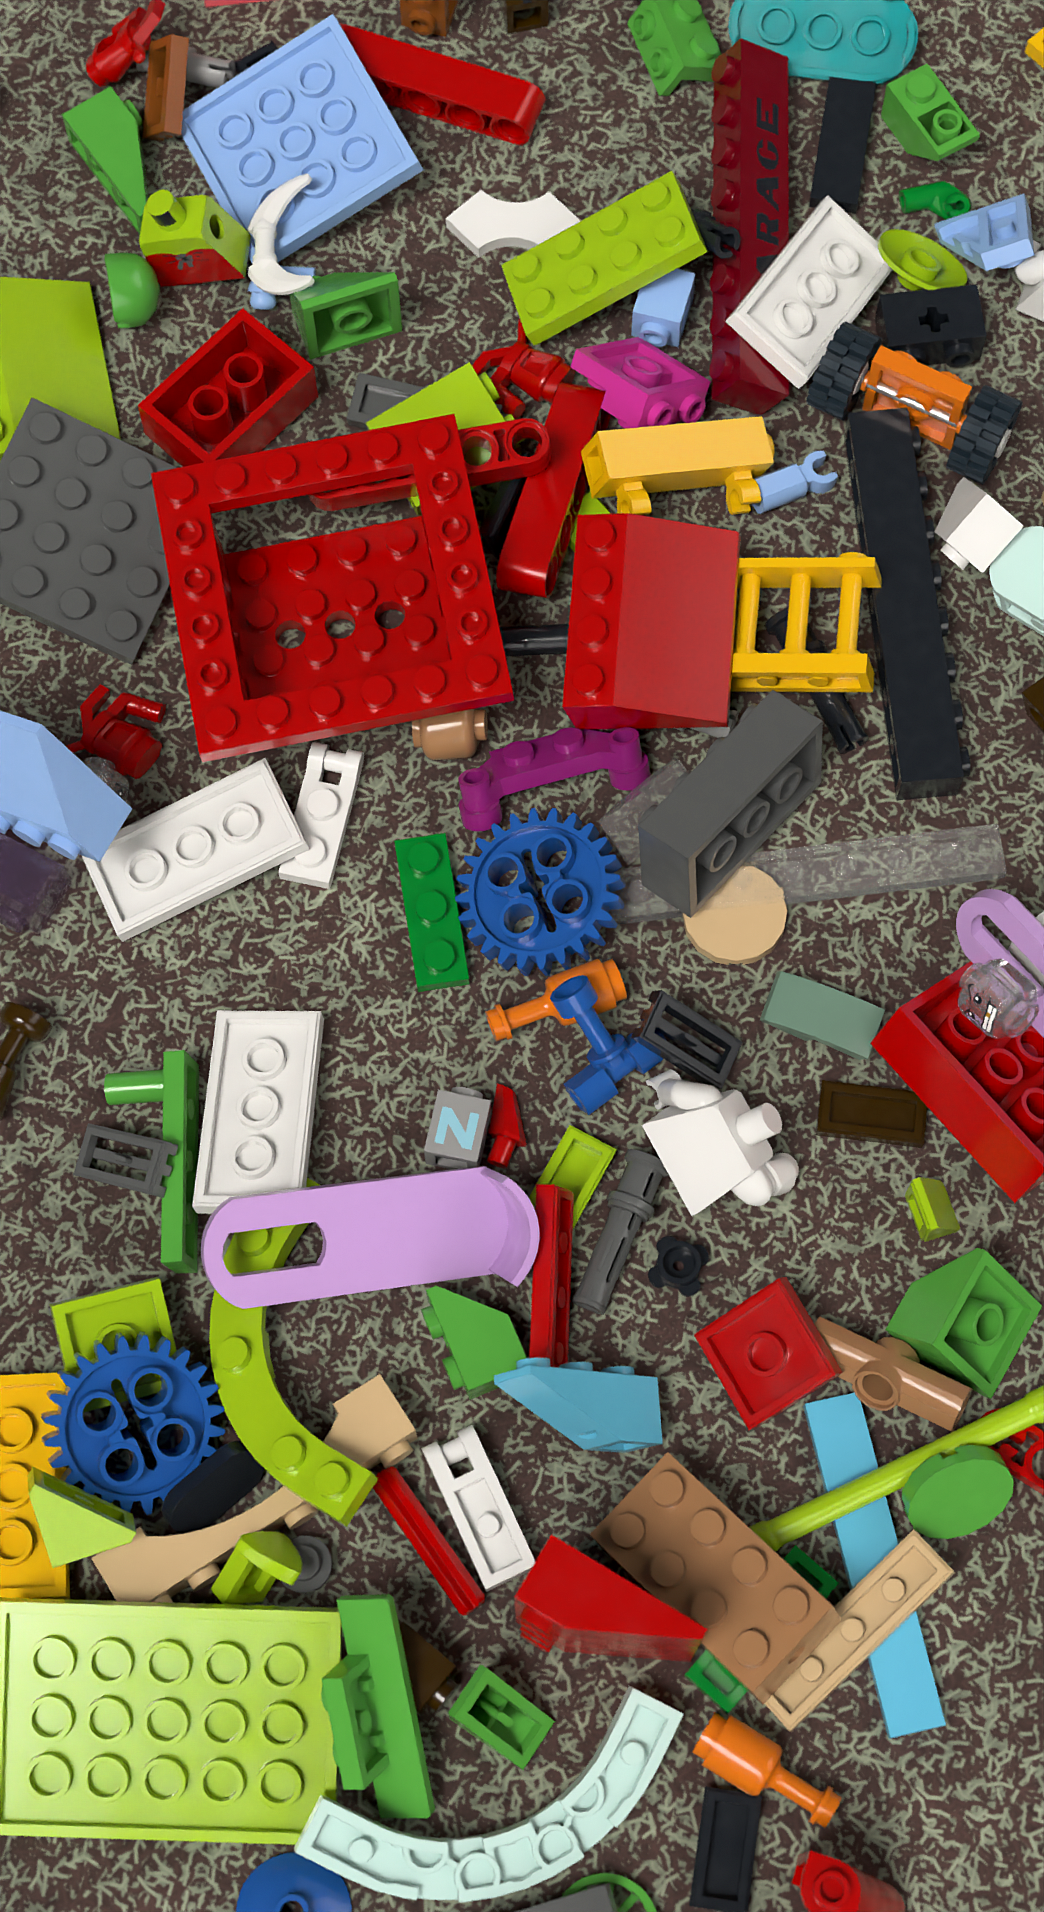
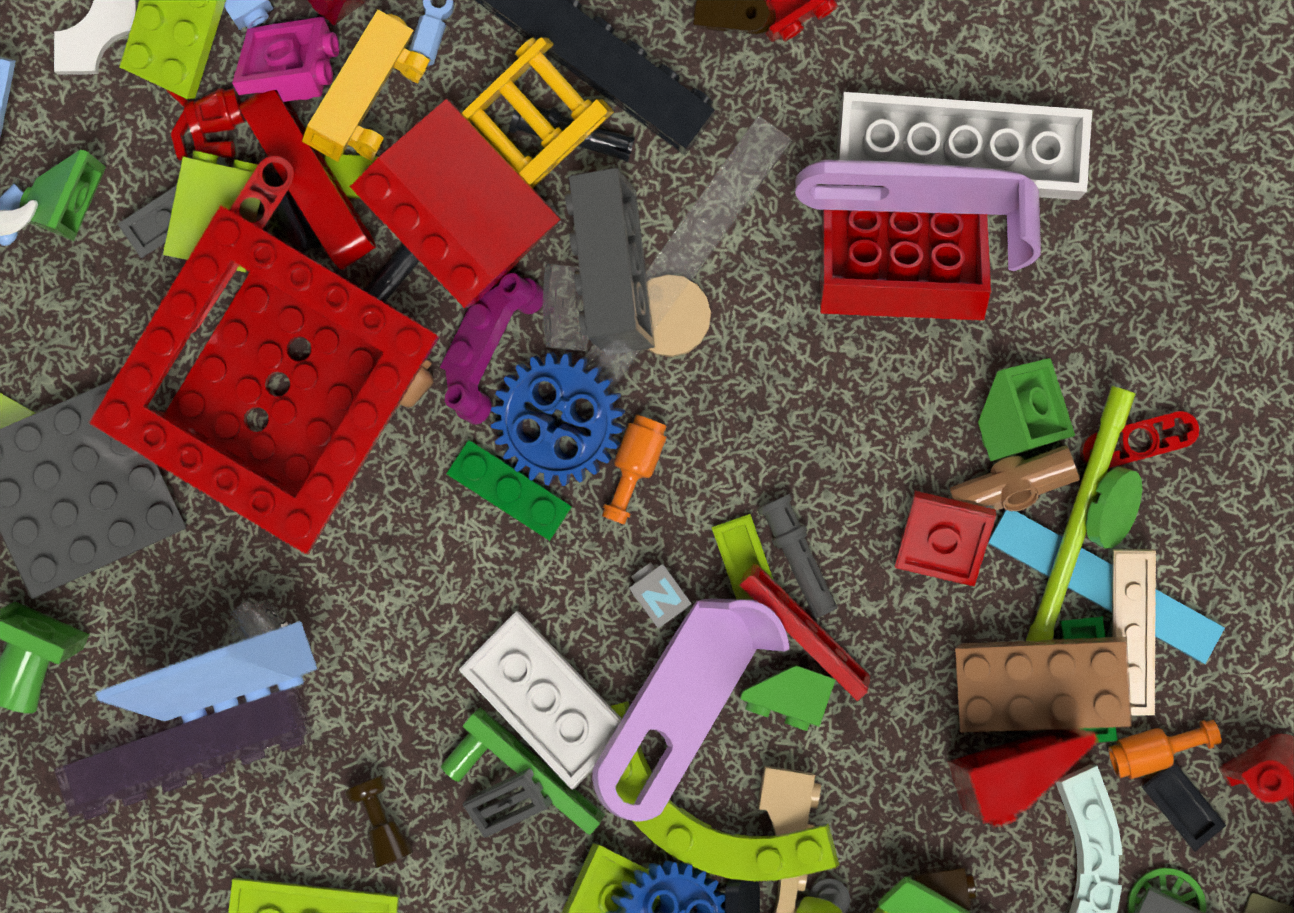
camera: 50 degrees left, 15 degrees up
(113, 739) = (232, 583): red piece -> none
(196, 849) = (349, 594): white tile -> none
(229, 395) = (64, 320): red brick -> none
(323, 814) = (394, 507): white plate -> none
(428, 1541) = (876, 819): red axle -> none
(480, 1510) = (886, 775): white plate -> none
(500, 1717) = (1008, 866): bright green slope -> none
(505, 1127) = (678, 564): red bar -> none
(590, 1407) = (890, 668): medium azure slope -> none
(609, 1057) = (692, 467): blue bar -> none
(653, 1021) = (699, 426): black tile -> none
(678, 1251) = (836, 536): black plate -> none
(717, 1143) = (803, 459): white torso -> none
(822, 1015) = (778, 324): sand green slope -> none
(871, 1114) = (857, 350): dark brown tile -> none
(931, 1208) = (943, 368): lime slope -> none
(998, 998) = (867, 221): clear head -> none

